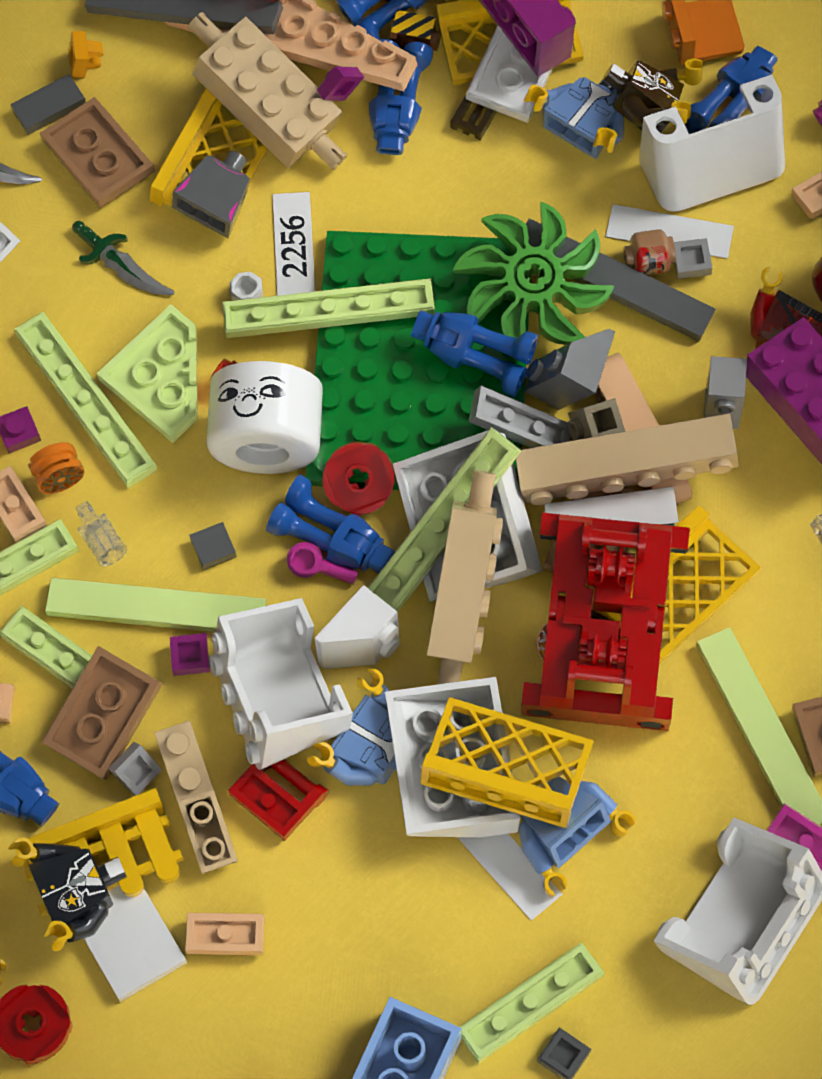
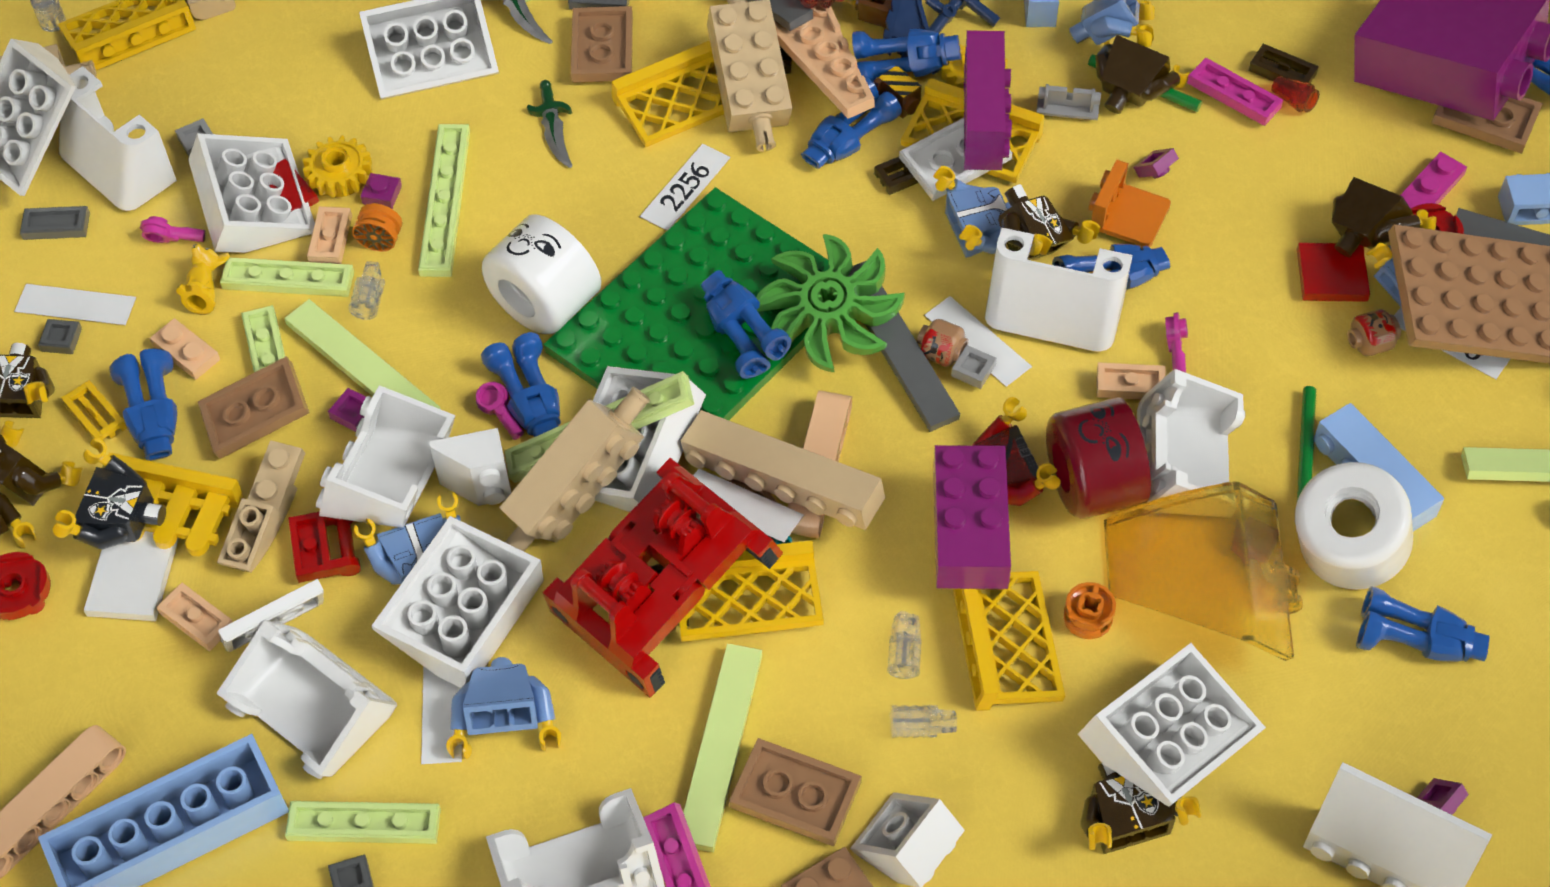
camera: 35 degrees right, 10 degrees down
(135, 769) = (241, 460): light grey plate -> none
(159, 373) = (504, 202): yellowish green plate -> none
(213, 545) = (439, 349): dark grey tile -> none
(214, 192) = (653, 112): dark grey torso -> none
(246, 286) = (621, 192): white tile -> none
(303, 885) = (279, 611): none -> white tile
(327, 308) = (663, 235): yellowish green tile -> none
(340, 83) = (803, 85): magenta plate -> none
(350, 496) = (567, 347): red plate -> none
(395, 933) = (306, 696): none -> white windscreen
(492, 787) = (458, 629): yellow fence -> none
(516, 420) = (726, 392): light grey plate -> none
(570, 371) = (798, 378): dark grey slope -> none
(595, 420) = (788, 428): dark tan brick -> none
(725, 388) = (906, 472): light grey brick -> none

